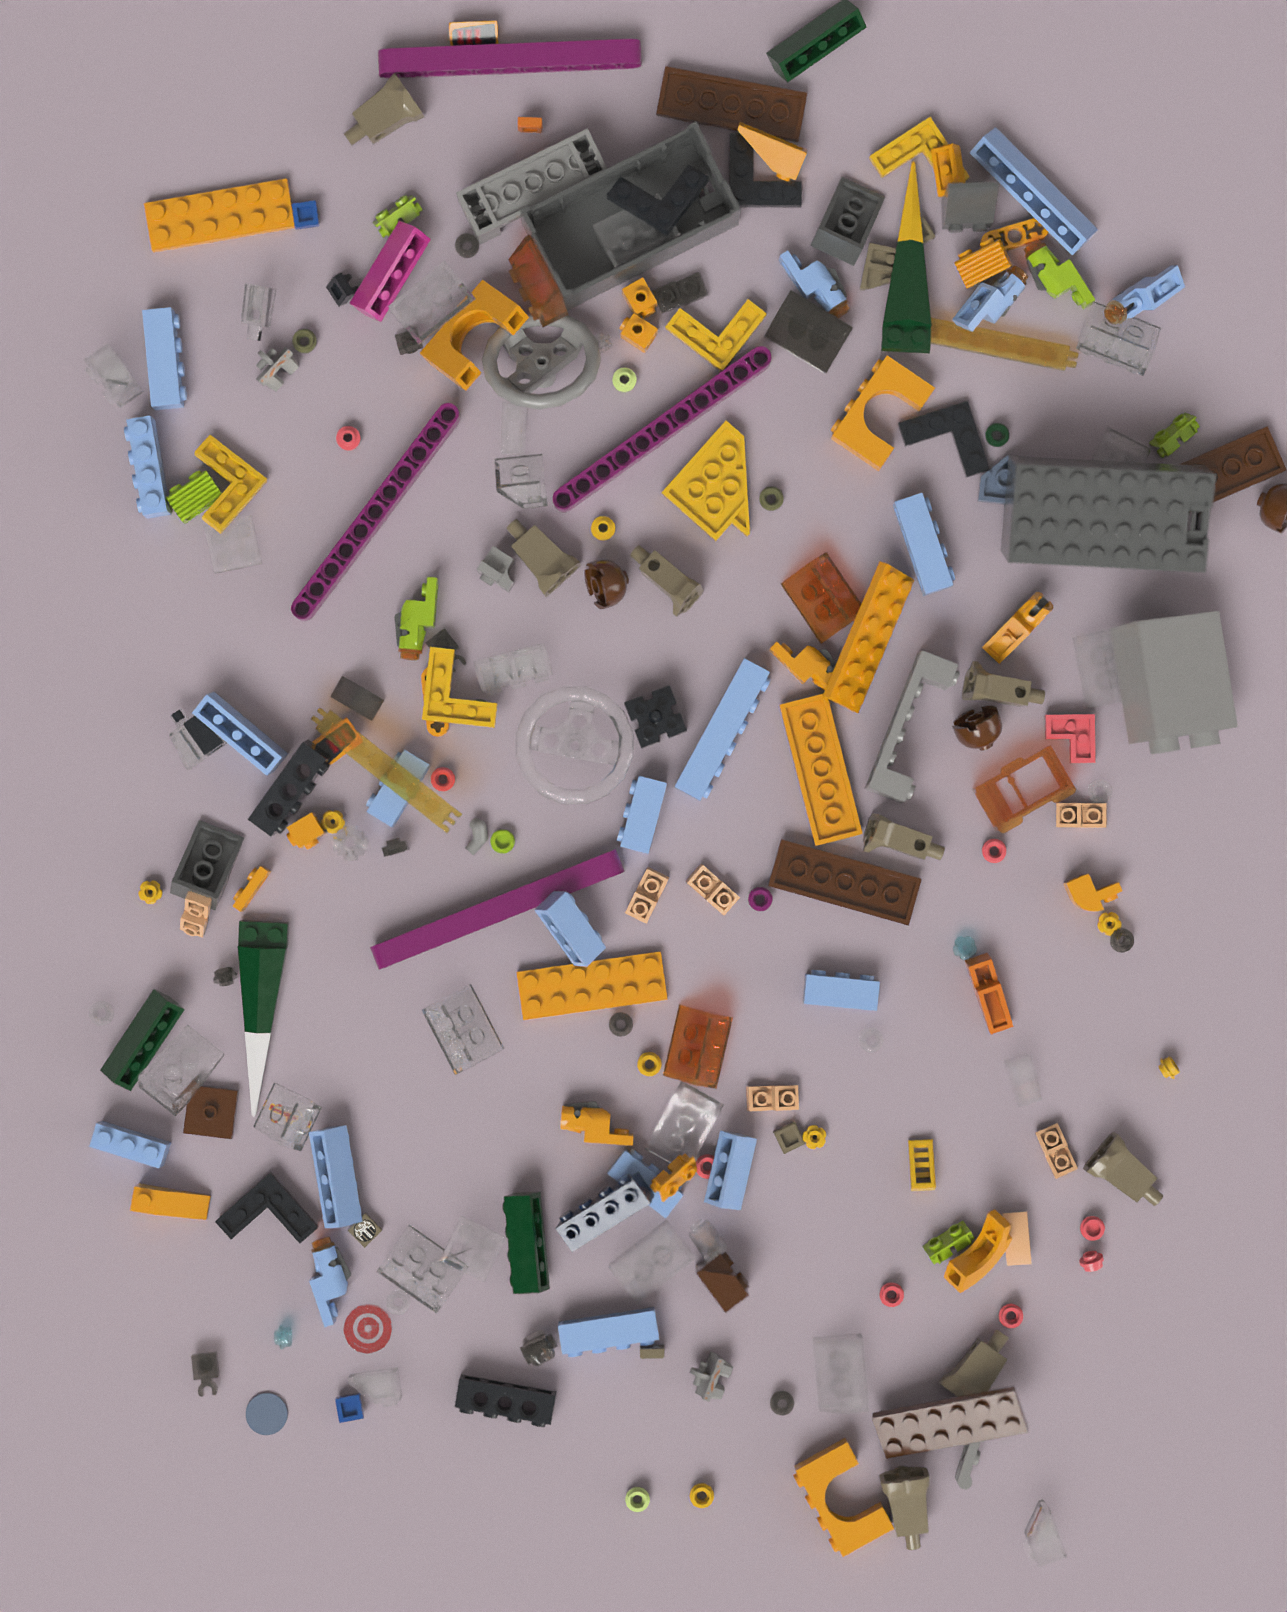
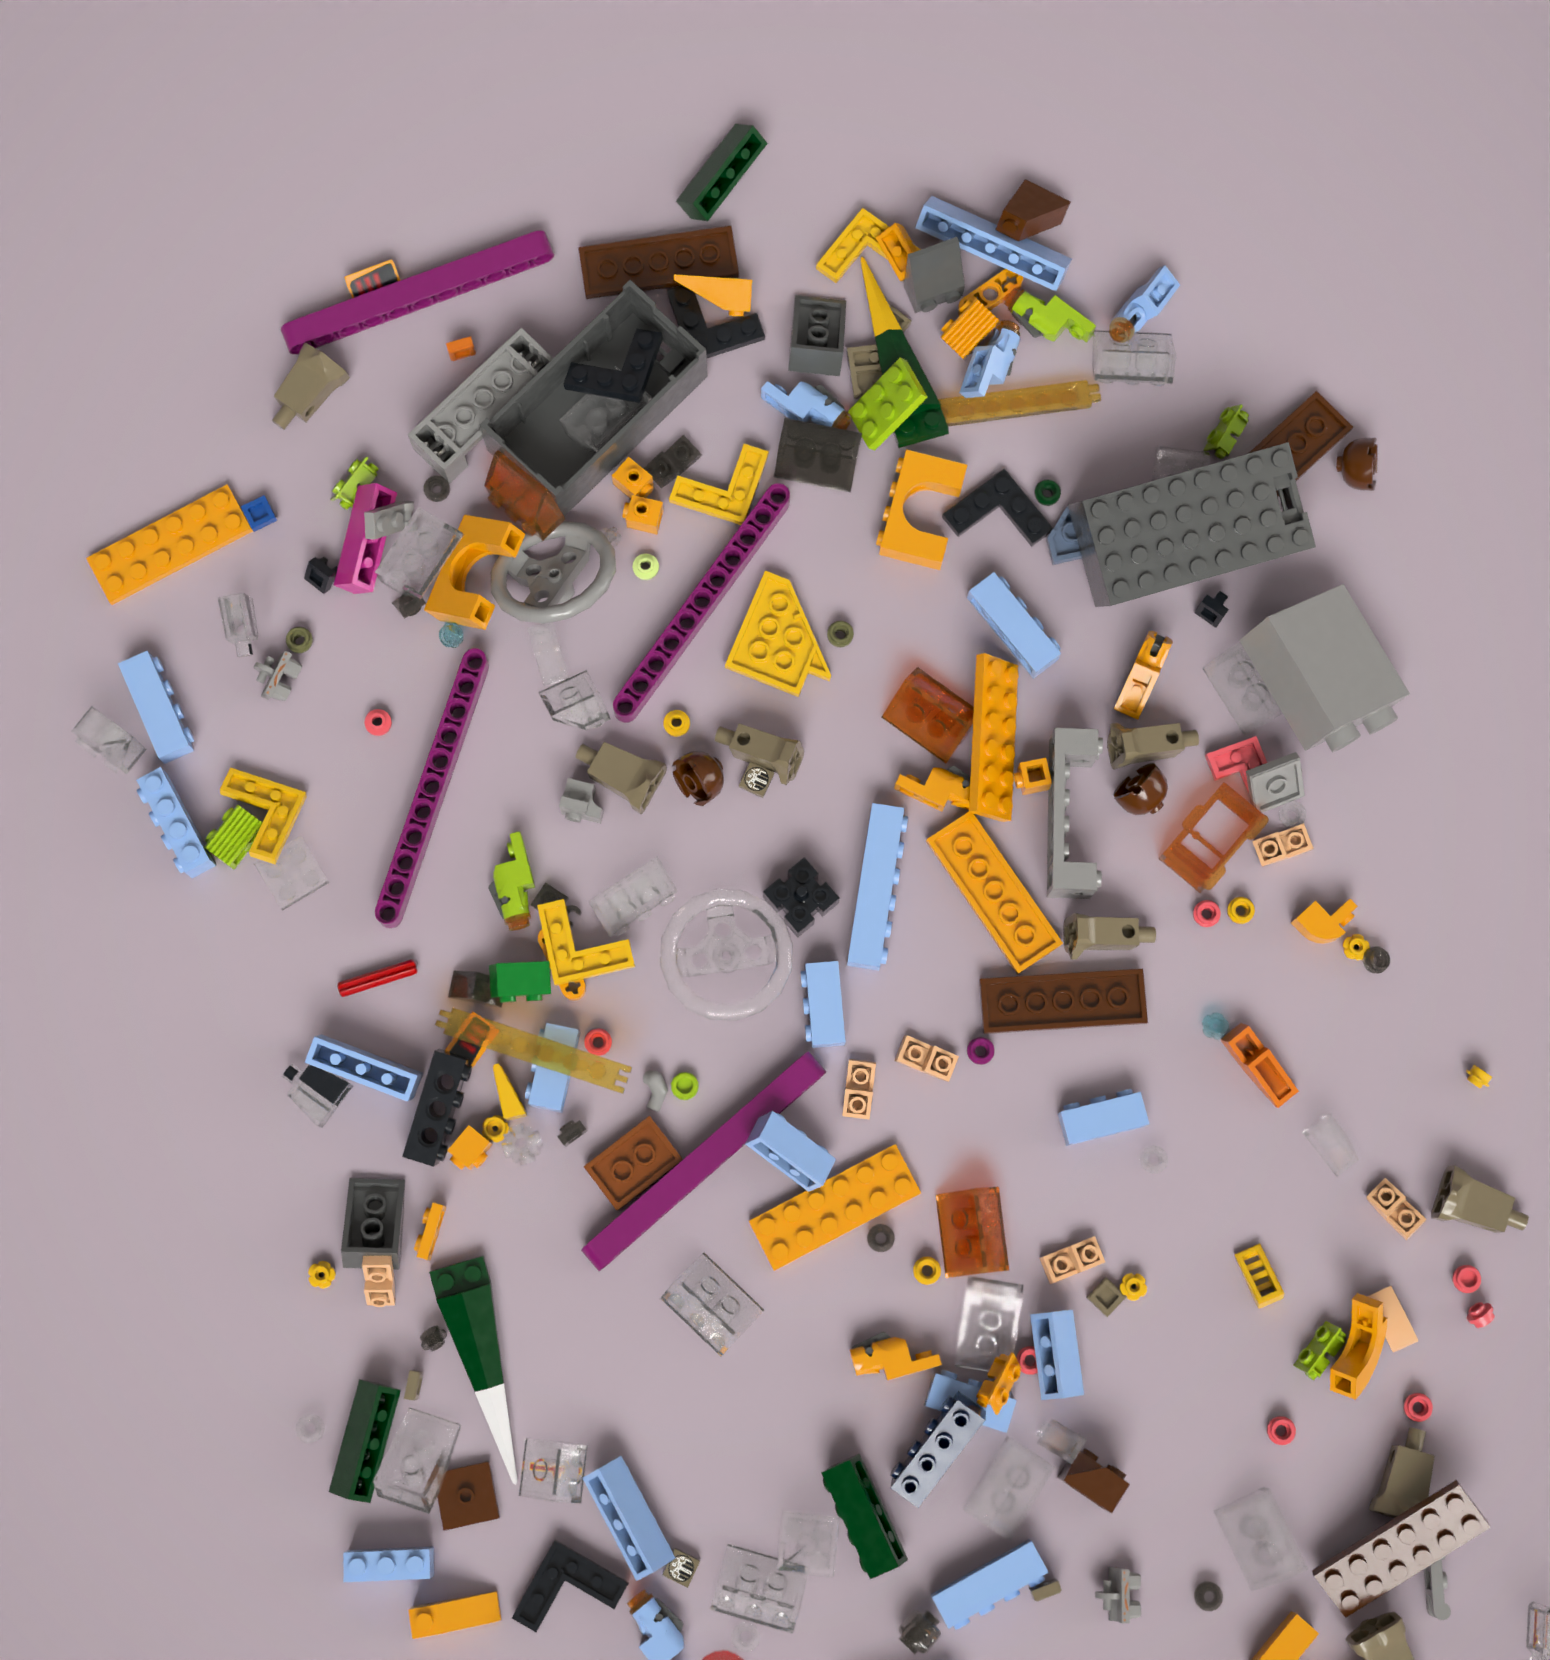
camera: 20 degrees left, 10 degrees down
(196, 1008) = (413, 1385): none -> dark tan tile
(276, 659) = (377, 978): none -> red axle
(352, 801) = (509, 1100): none -> yellow slope
(394, 705) = (520, 980): none -> green brick
(414, 262) = (387, 519): none -> light grey plate
(436, 383) = (451, 635): none -> clear light blue plate
(437, 890) = (633, 1163): none -> dark orange plate
(654, 601) = (756, 779): none -> dark tan tile
(884, 309) = (887, 404): none -> lime plate
(889, 683) = (1033, 776): none -> light orange brick
(1031, 858) = (1248, 907): none -> yellow plate
(1078, 174) = (1032, 212): none -> reddish brown slope
(1094, 761) = (1275, 782): none -> light grey tile
(1100, 590) = (1213, 609): none -> black tile

